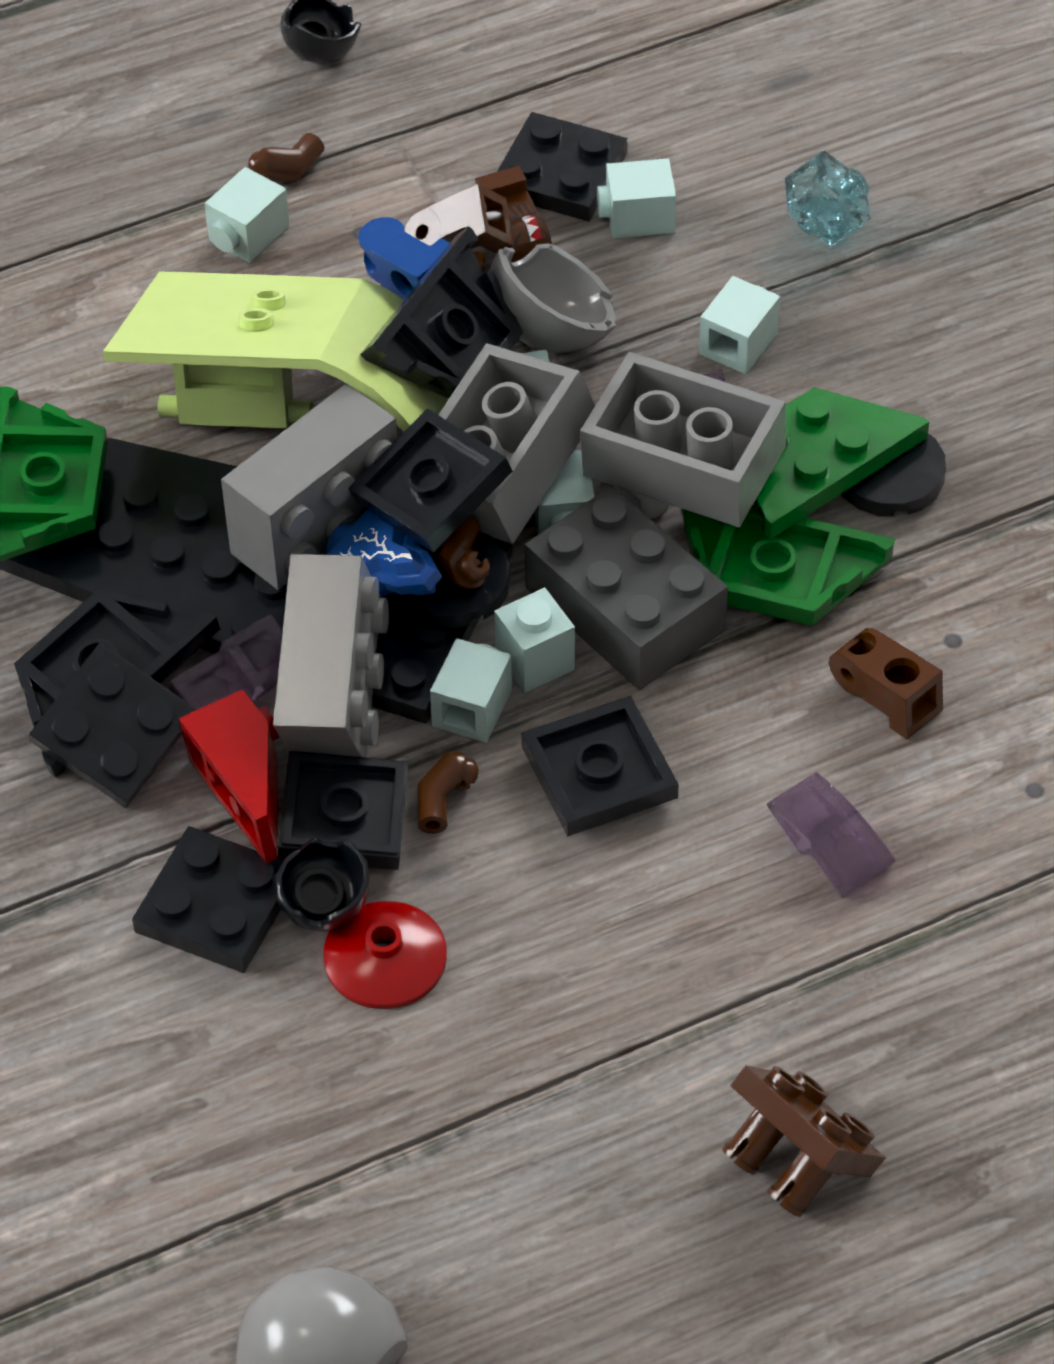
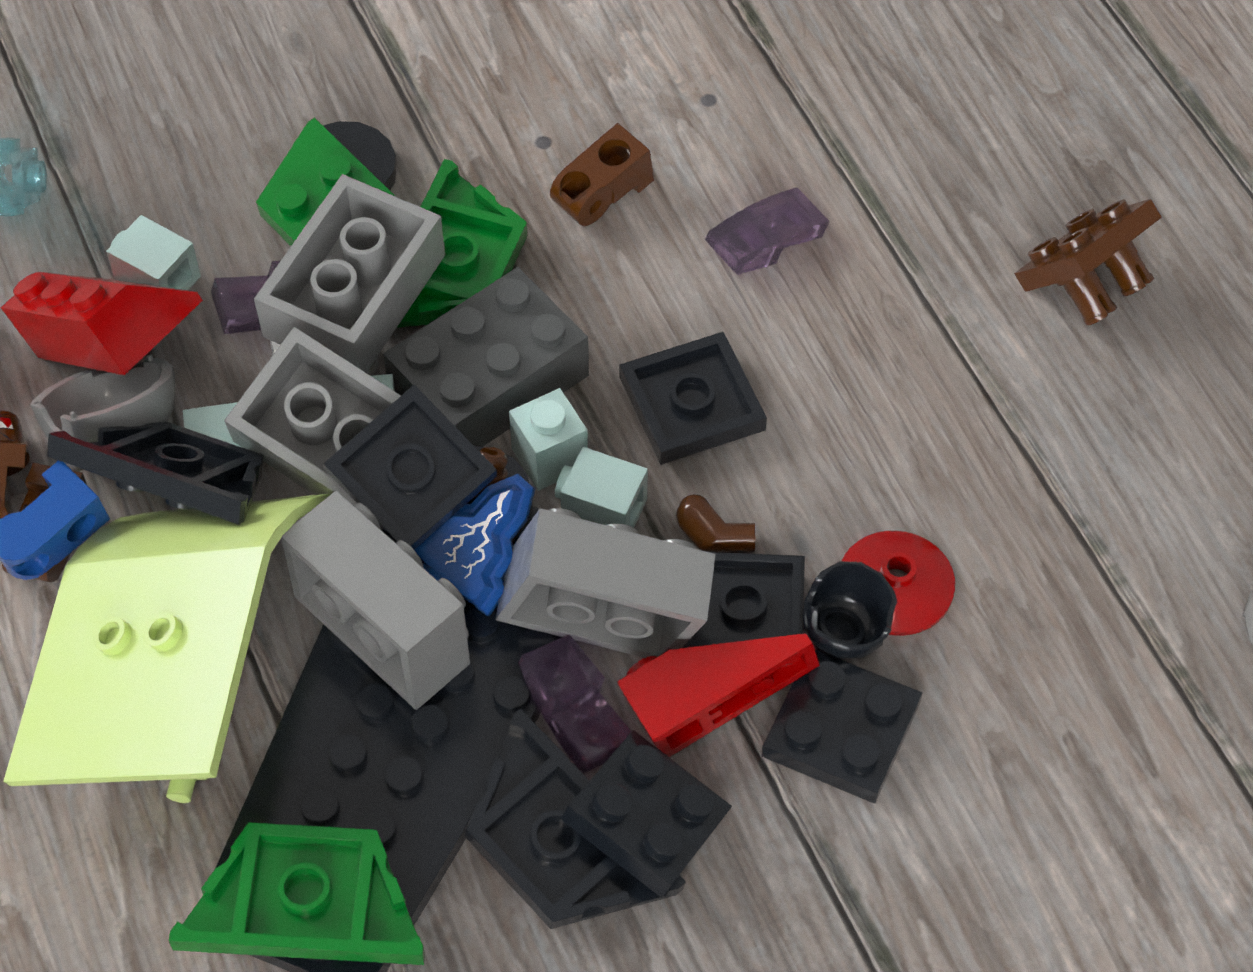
camera: 90 degrees left, 5 degrees up
(645, 269) = (95, 320): none -> red slope

